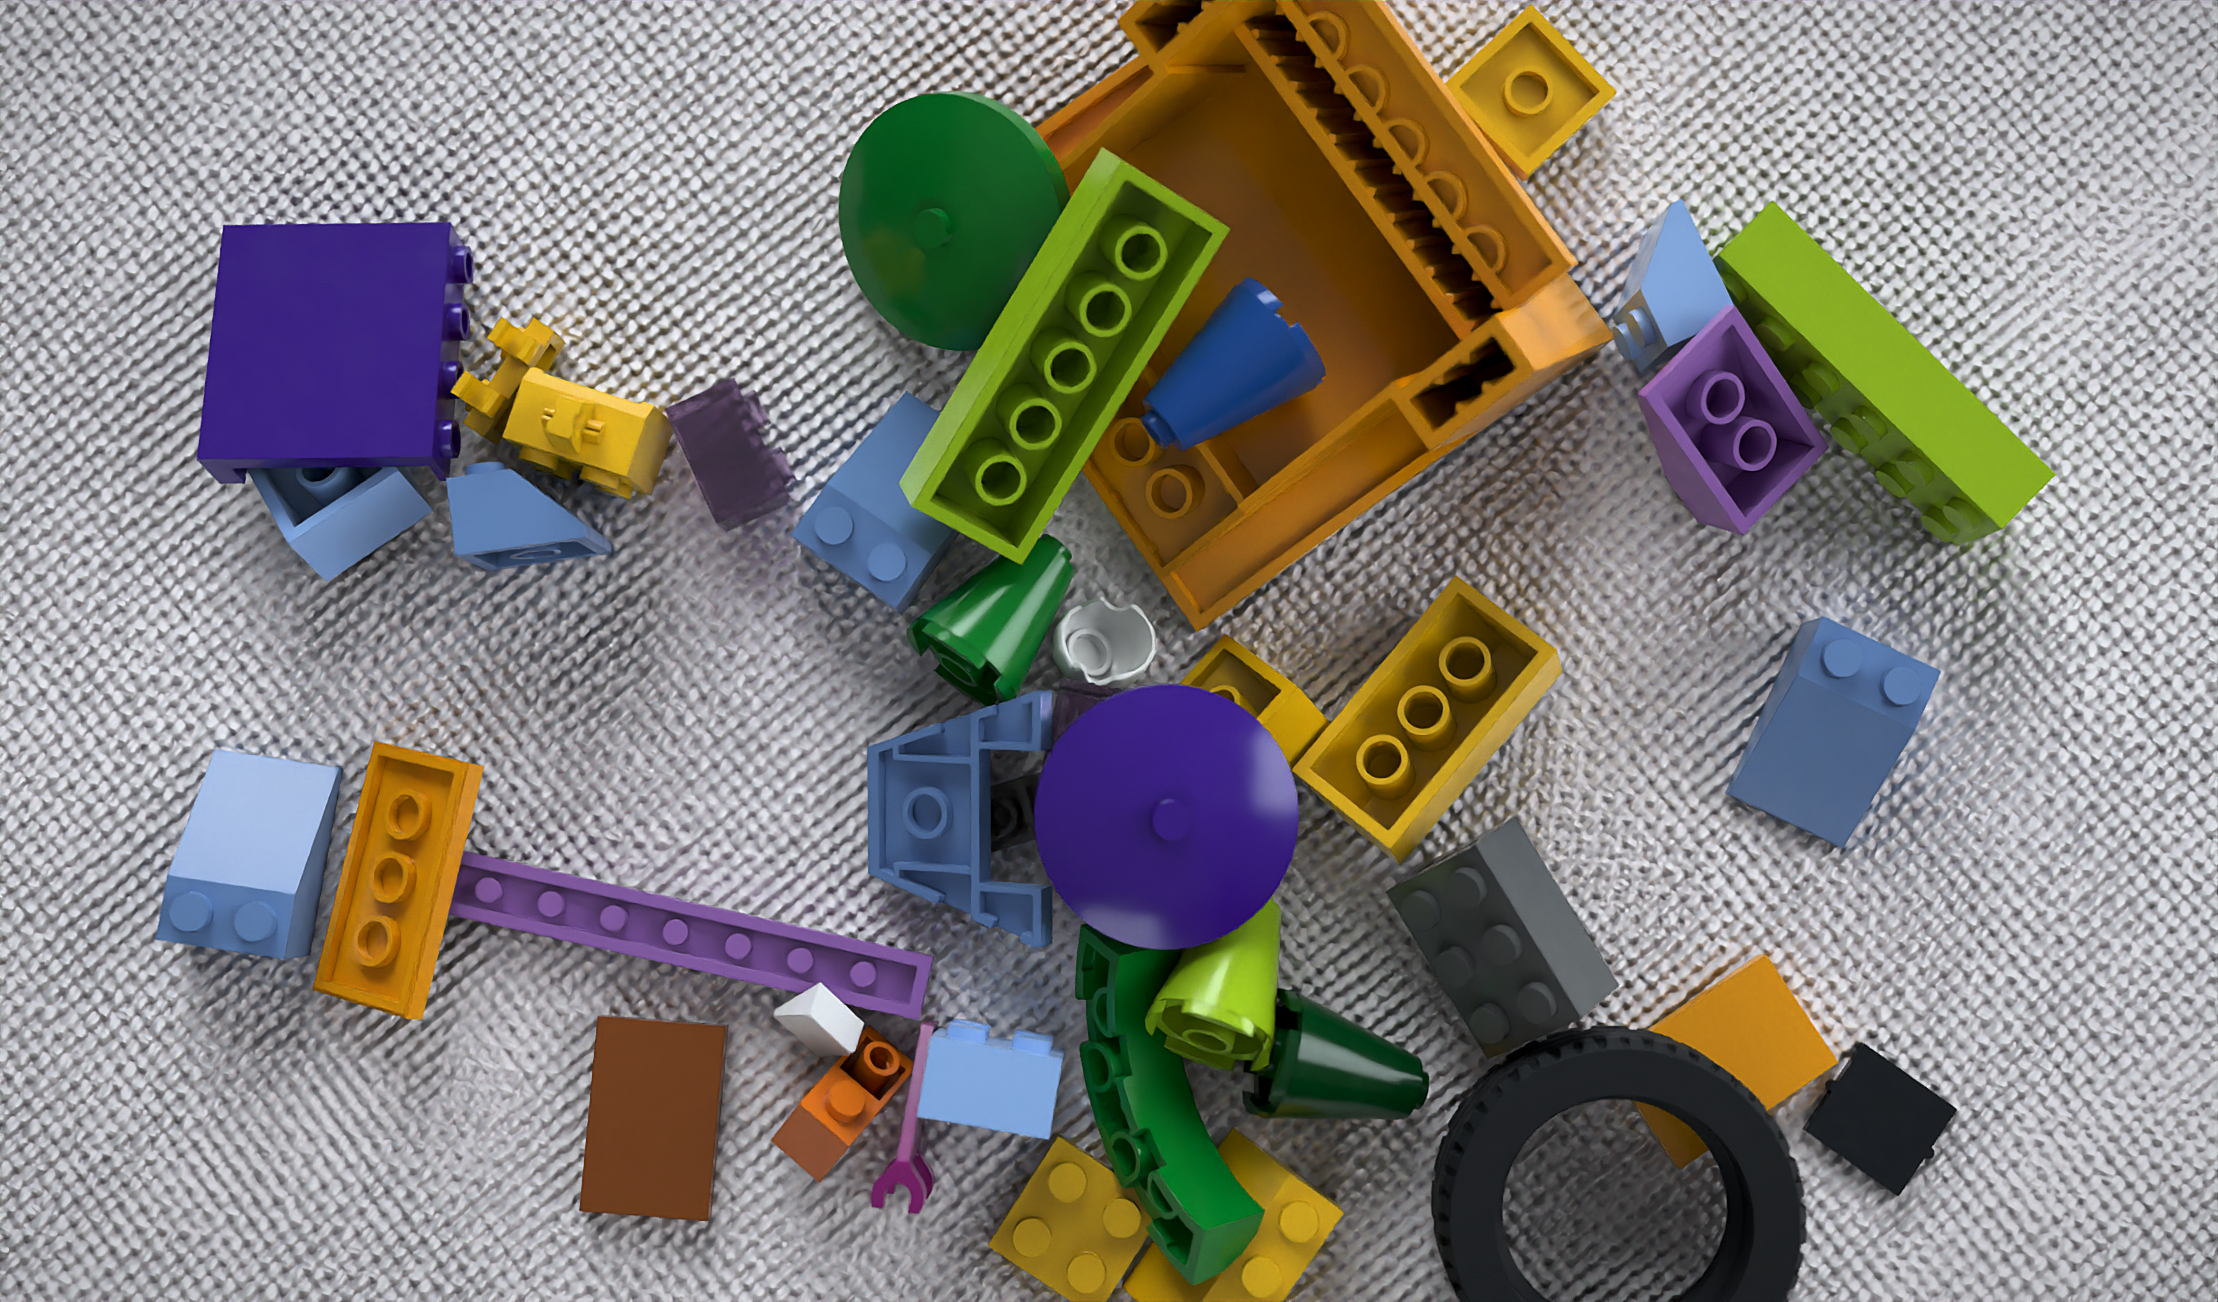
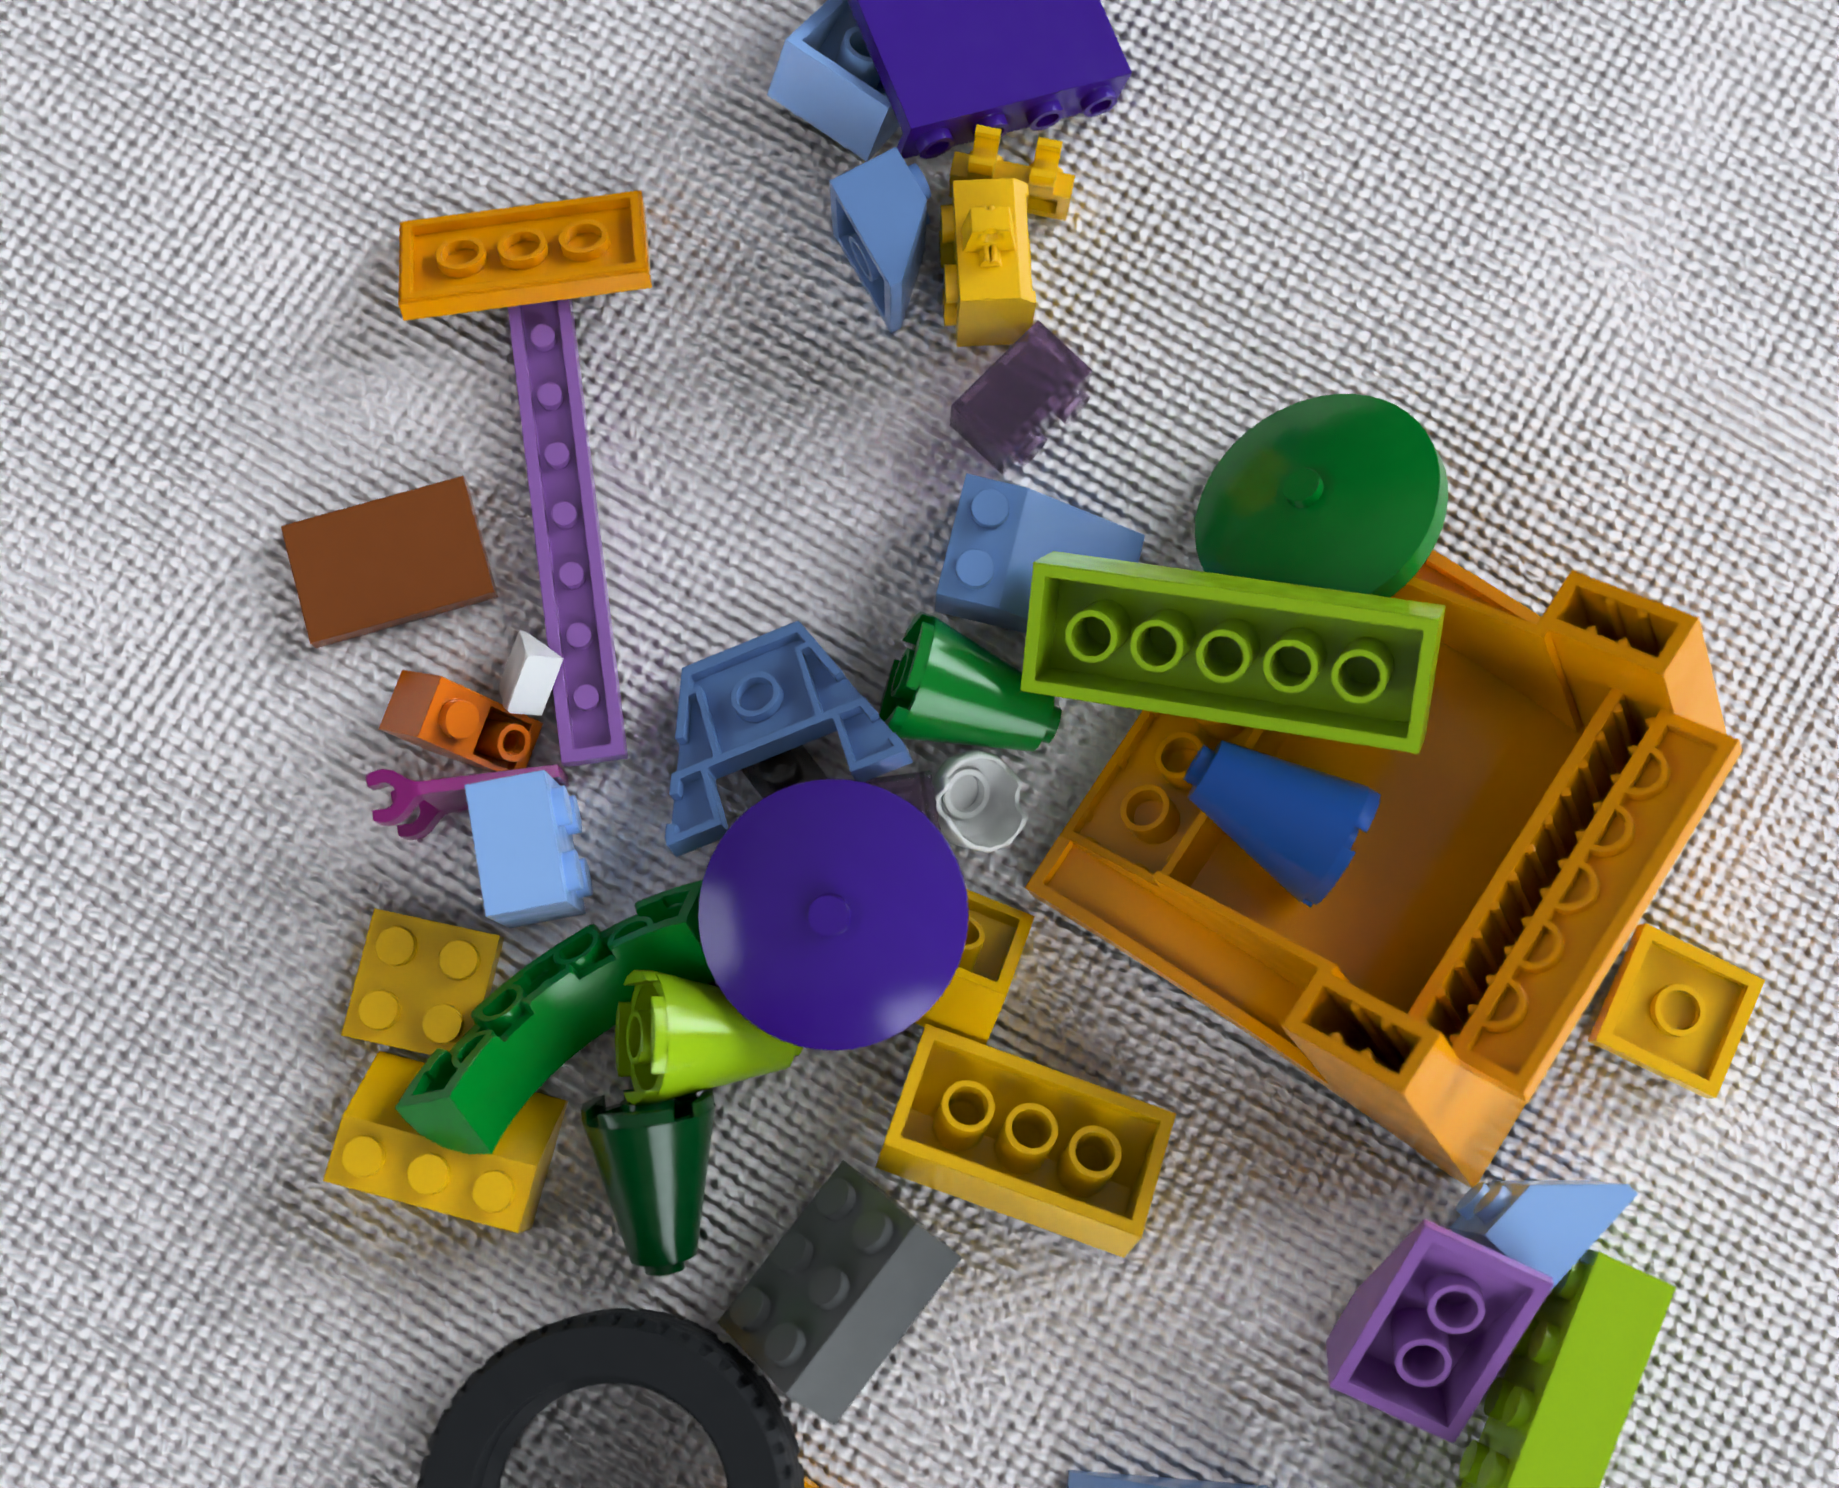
camera: 65 degrees right, 5 degrees down
(252, 857) = (497, 127): slope -> none

